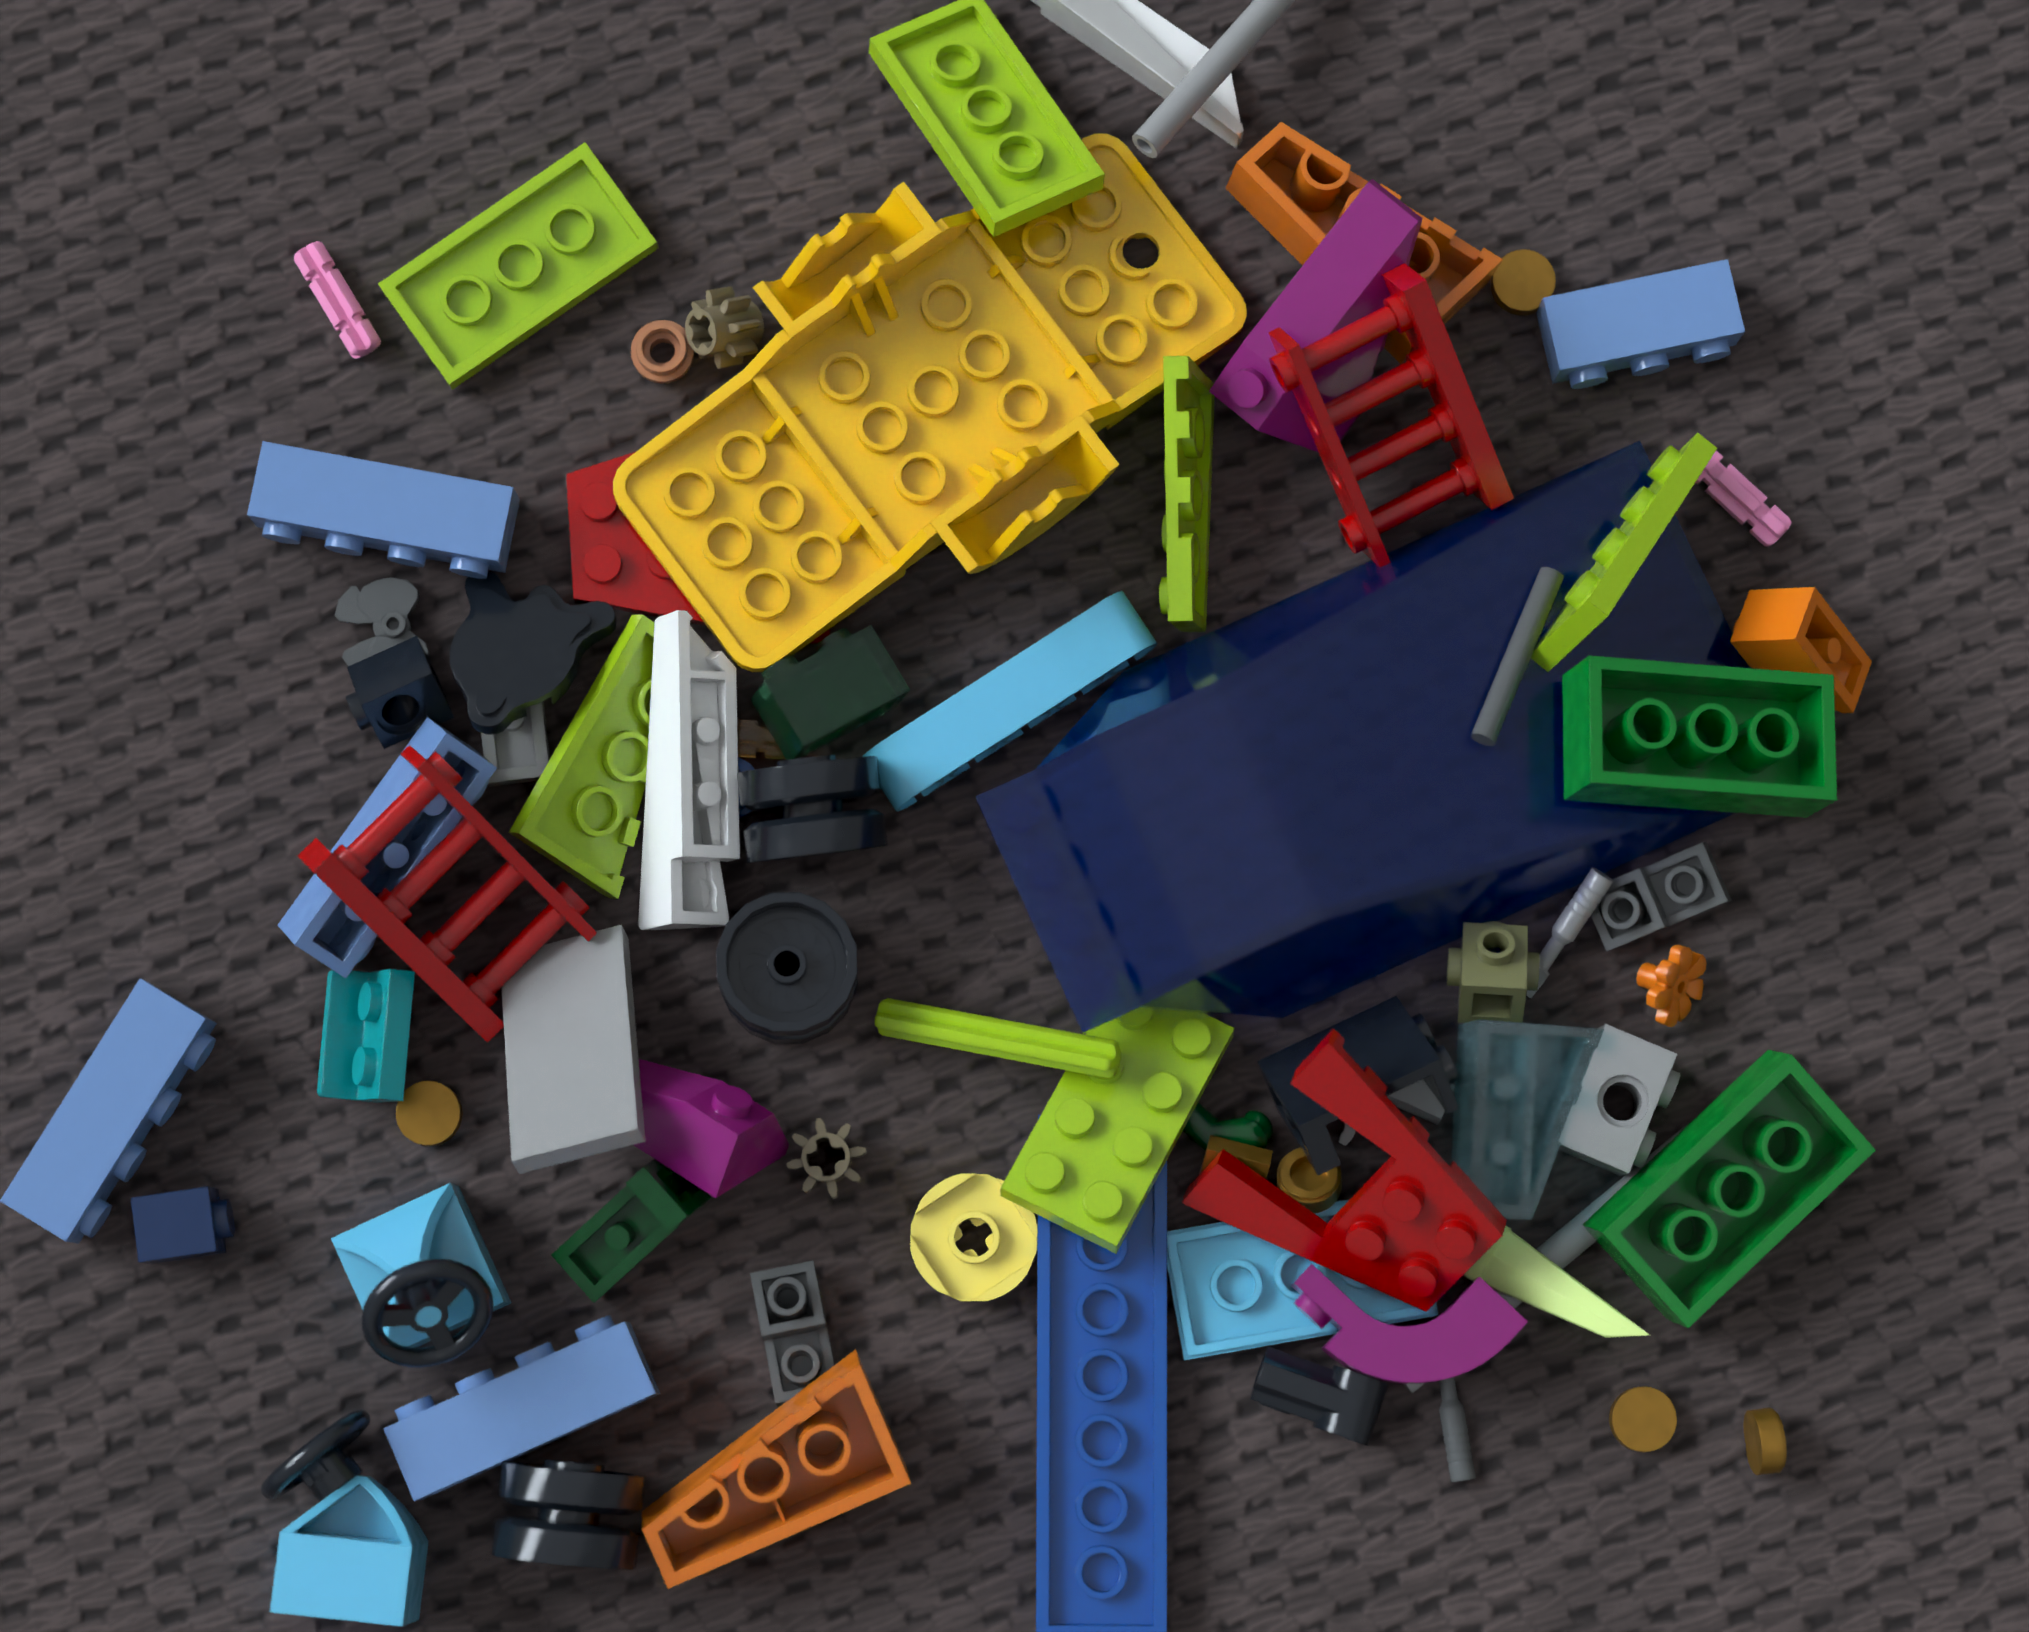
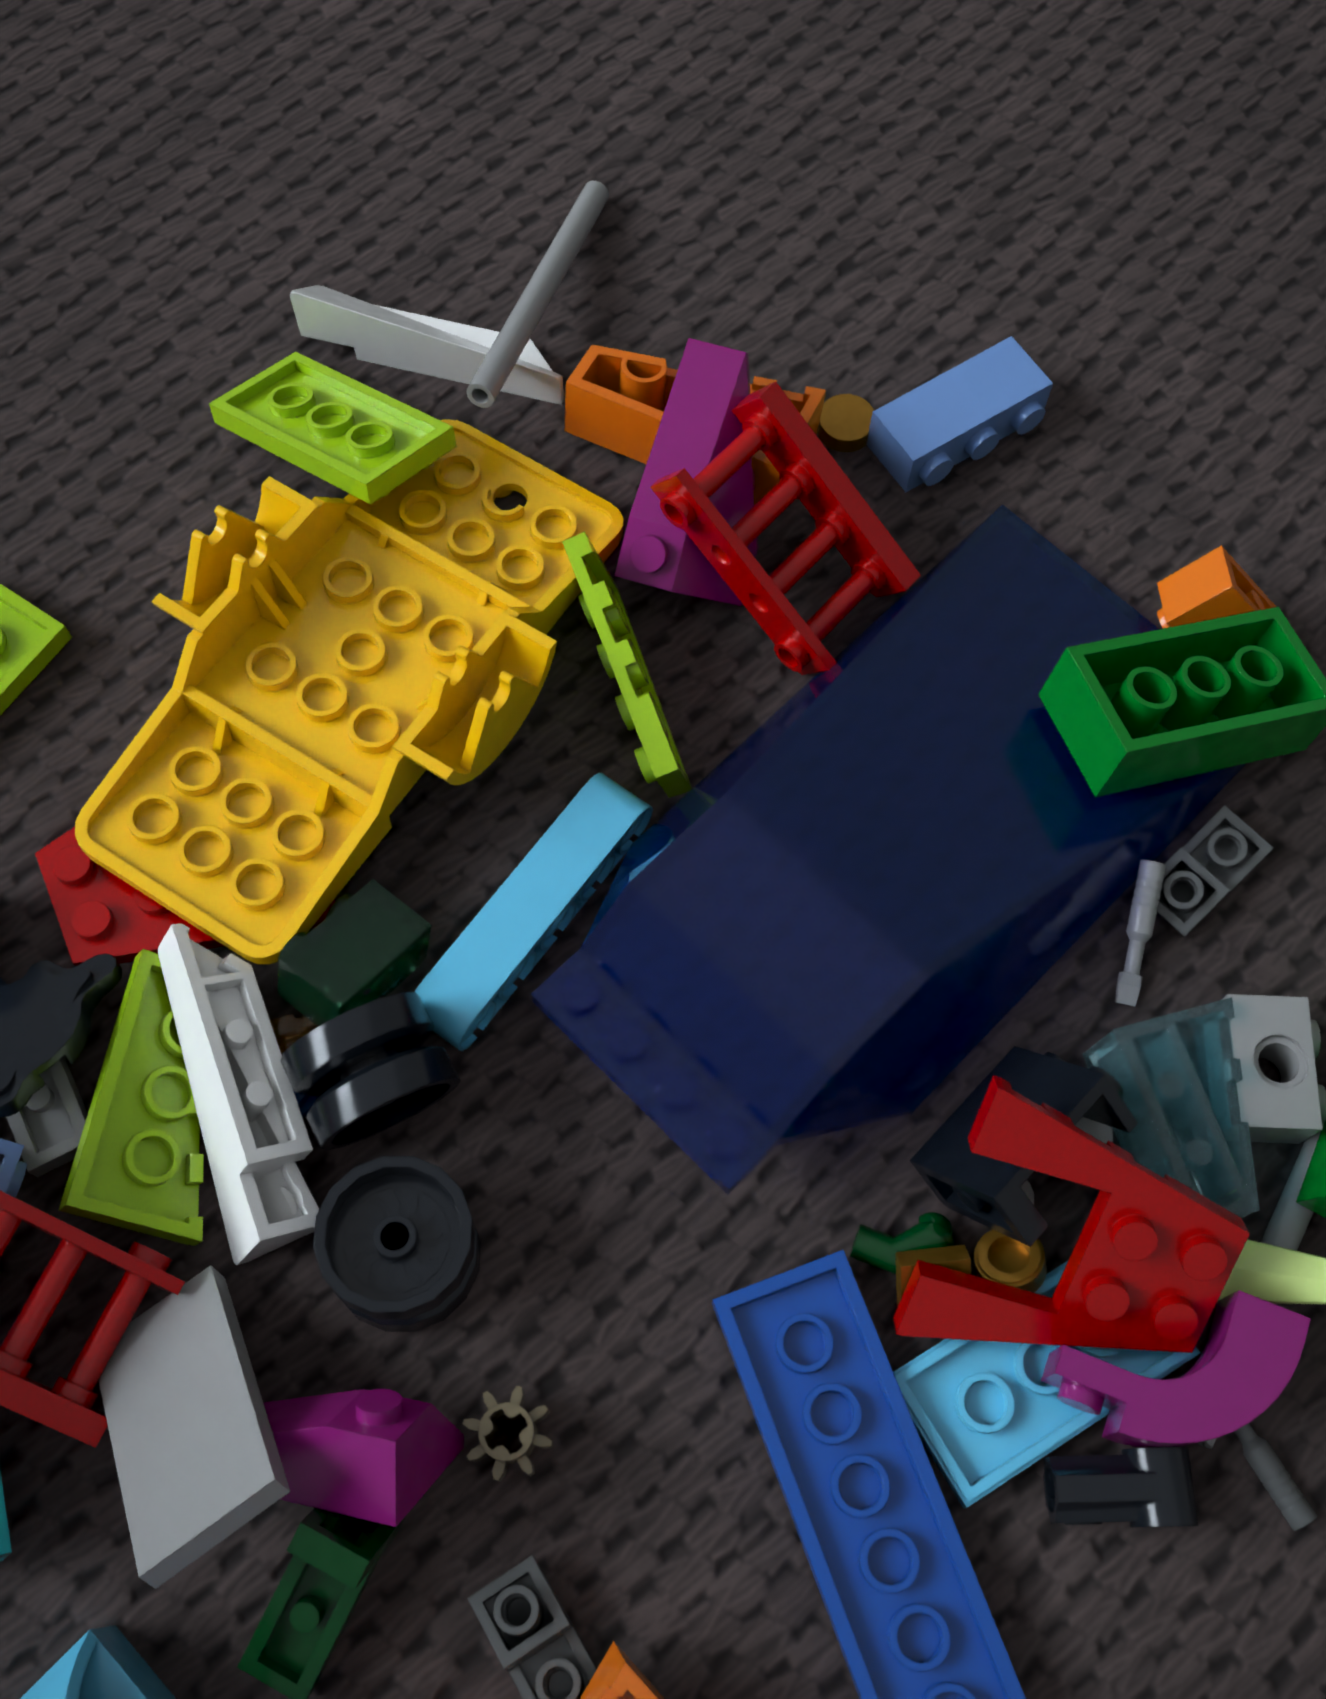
camera: 20 degrees left, 15 degrees down
(429, 1113) = (58, 1554): pearl gold tile -> none
(661, 332) = (88, 707): nougat plate -> none
(724, 327) = (144, 672): dark tan gear -> none
(966, 1274) = (737, 1452): light yellow plate -> none
(998, 1037) = (643, 1233): lime axle -> none
(1111, 1136) = (794, 1279): lime plate -> none
(1492, 971) = (1094, 976): olive brick -> none
(1517, 656) = (991, 692): dark grey bar -> none
(1624, 549) = (1044, 579): lime wing -> none
(1673, 984) = (1260, 941): orange plant -> none
(1743, 501) = (1102, 520): bright pink axle -> none

